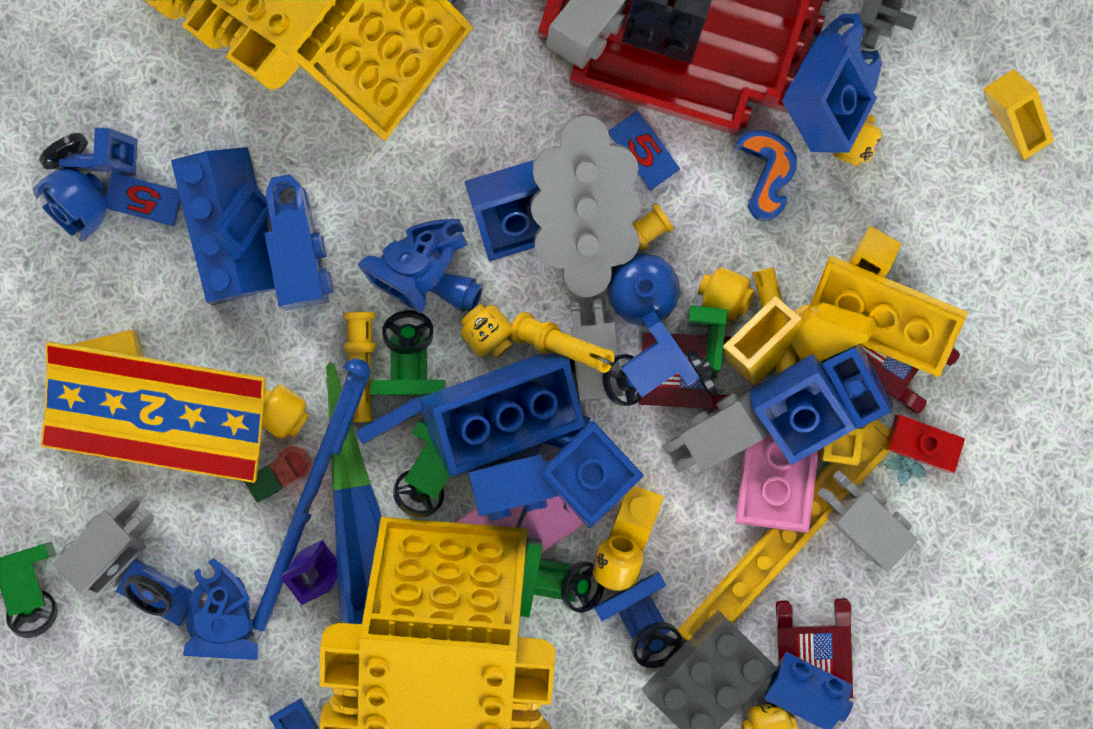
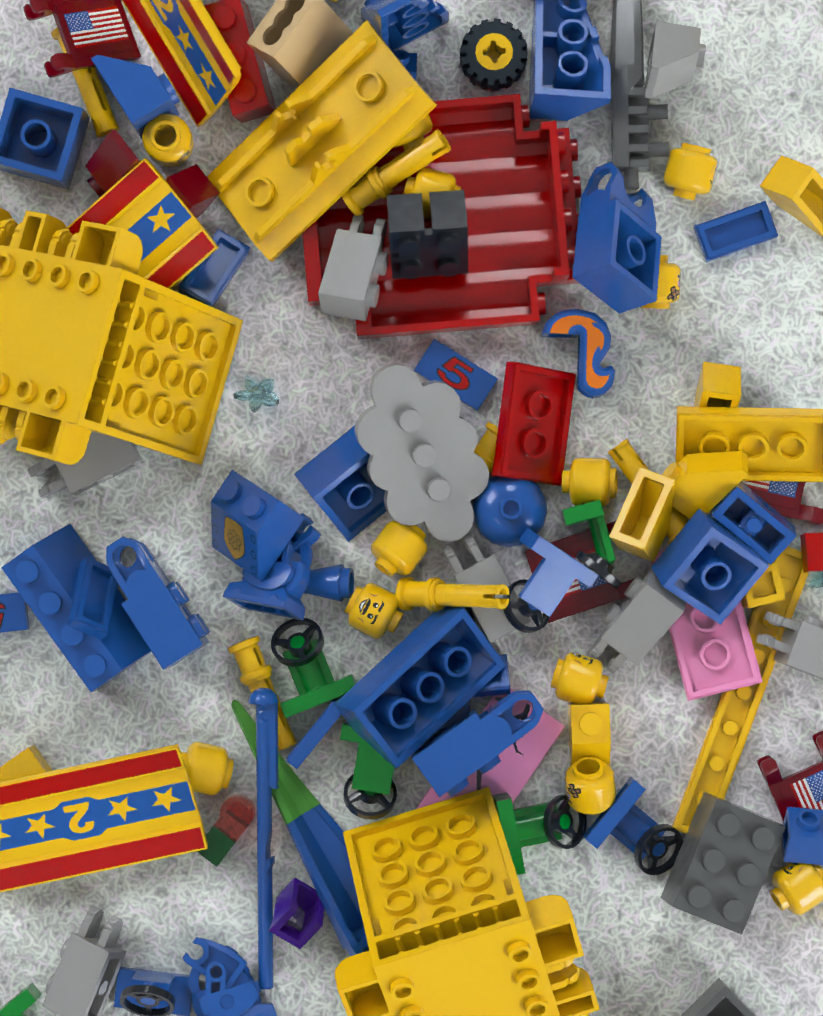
camera: 20 degrees left, 0 degrees up
(294, 102) = (102, 460): none -> light grey hinge
(408, 210) = (251, 525): none -> blue slope
(460, 97) = (258, 394): none -> clear light blue plant
(531, 284) = (399, 548): none -> yellow head
(590, 474) = (531, 713): blue tile -> none
(651, 461) = (579, 679): none -> yellow head
(696, 221) = (533, 423): none -> red tile
(926, 51) = (690, 170): none -> yellow head
(945, 121) = (735, 231): none -> blue tile

